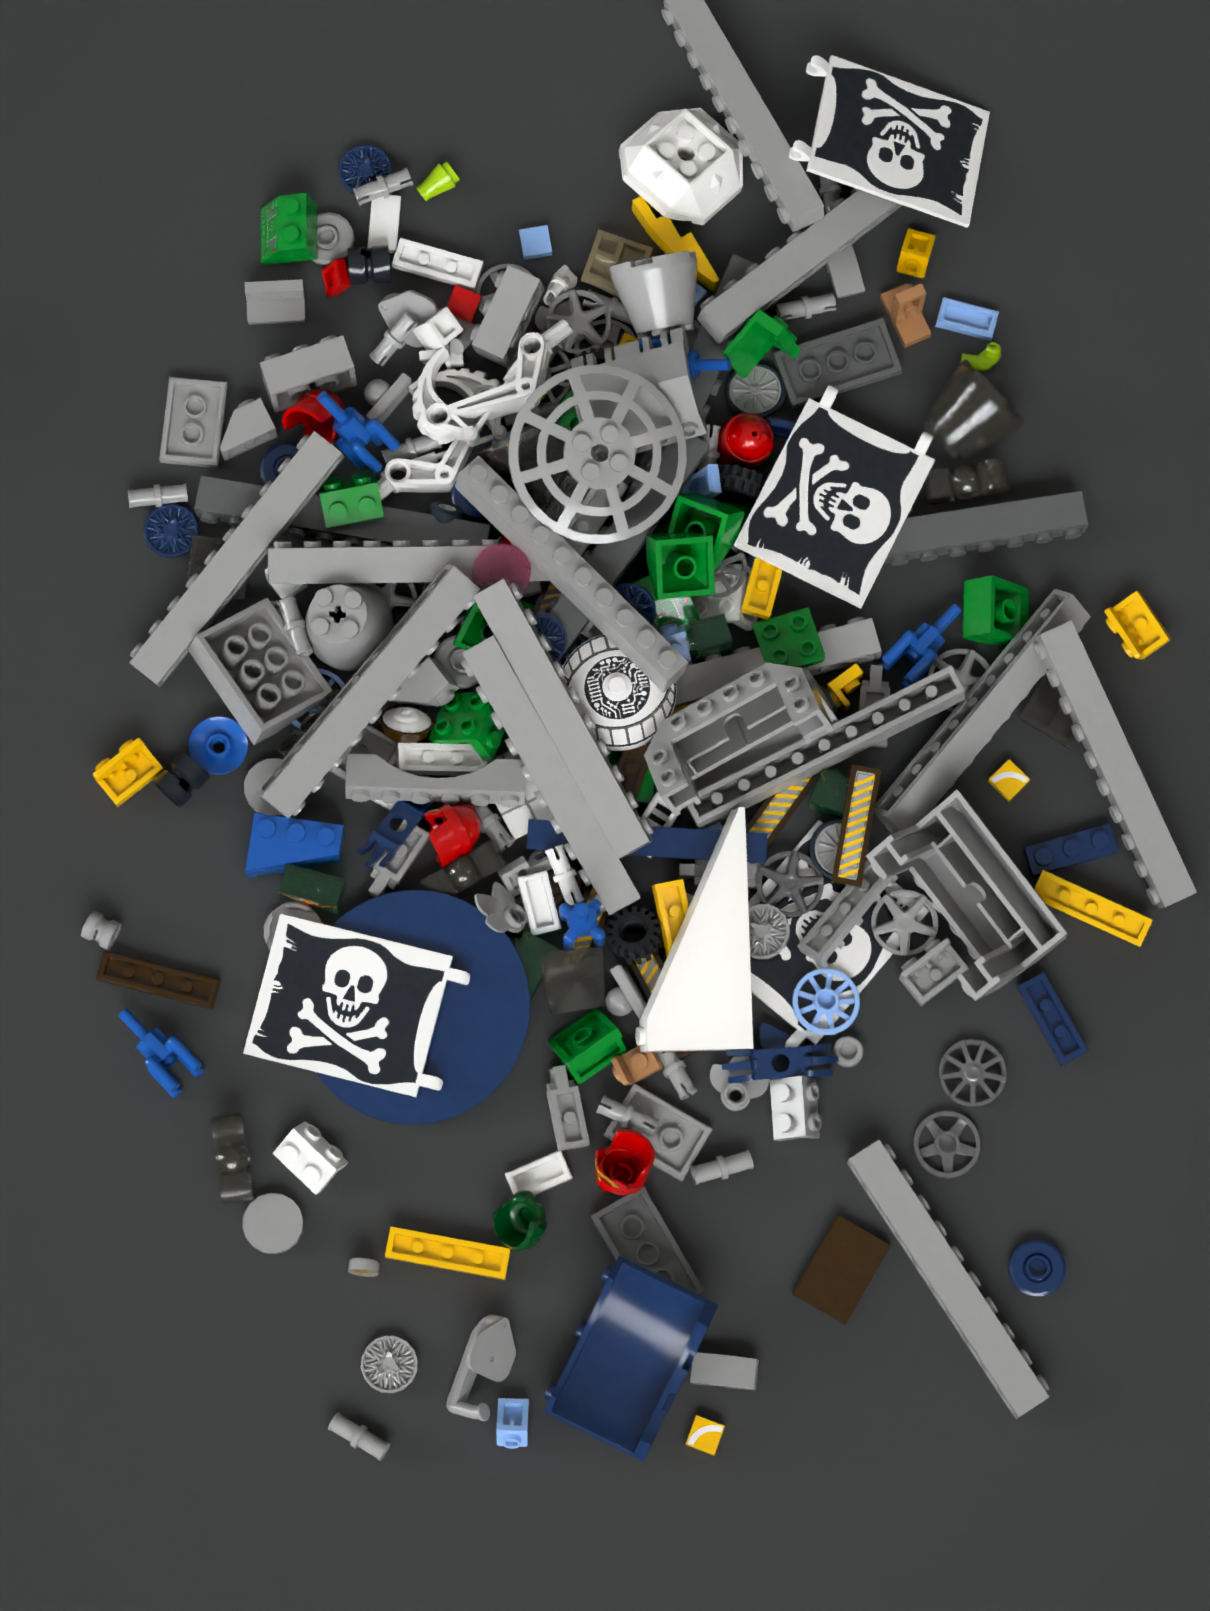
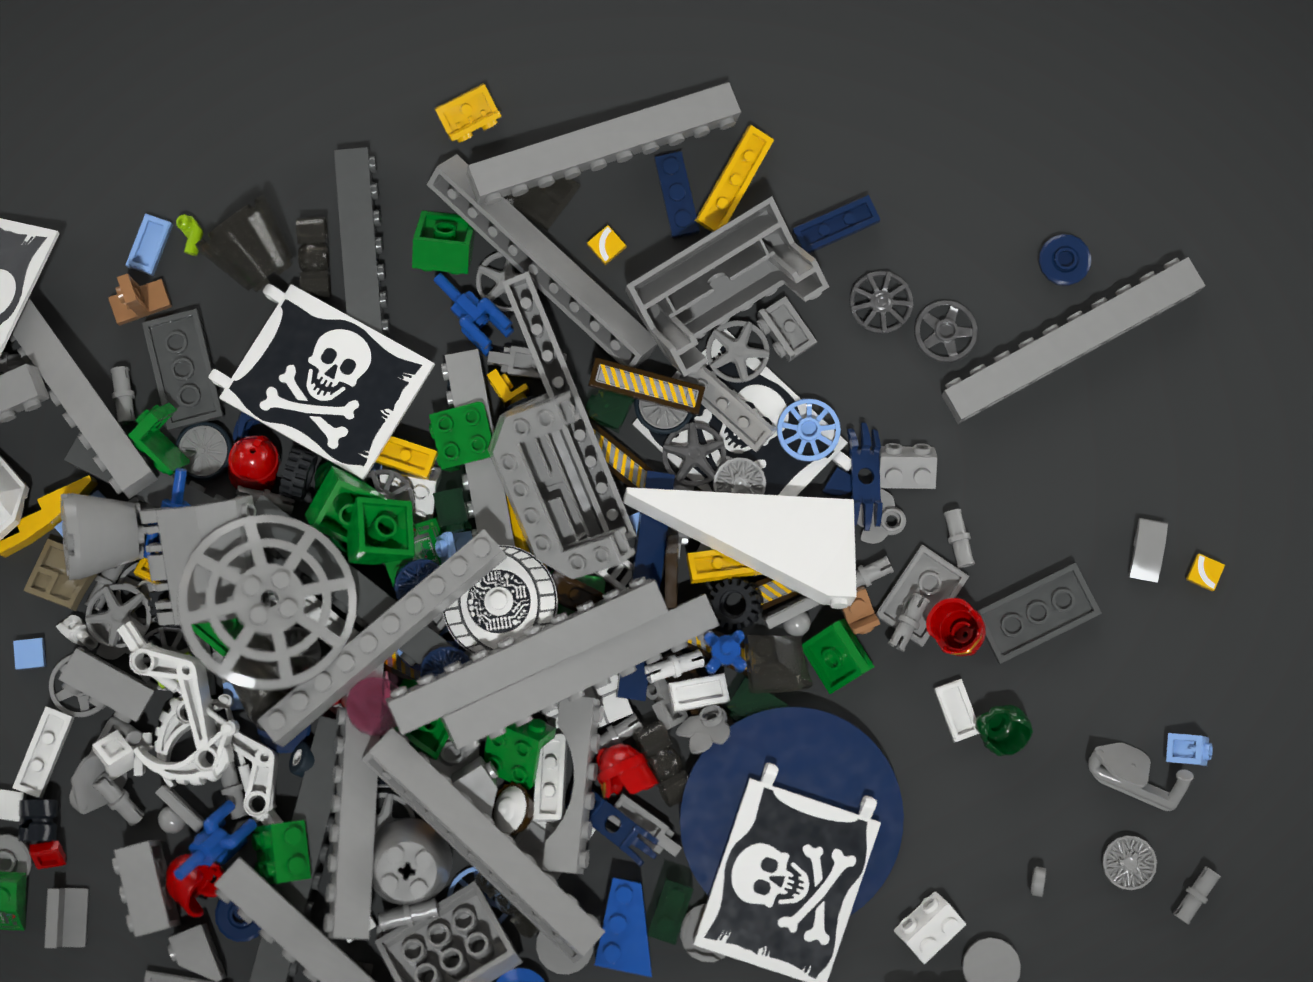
camera: 85 degrees left, 5 degrees up
(447, 1253) = (1028, 801): yellow plate -> none
(464, 303) = (86, 728): red tile -> none
(566, 1111) = (898, 680): light grey hinge -> none
(630, 1358) = (1139, 635): dark blue panel -> none
(662, 863) = (671, 571): none -> dark brown tile
(705, 482) = (296, 502): light blue tile -> none
(841, 1270) = (1058, 436): dark brown tile -> none
(845, 274) = (93, 354): light grey slope -> none
(848, 1051) = (854, 414): light grey tile -> none
(915, 253) = (78, 286): yellow bracket -> none

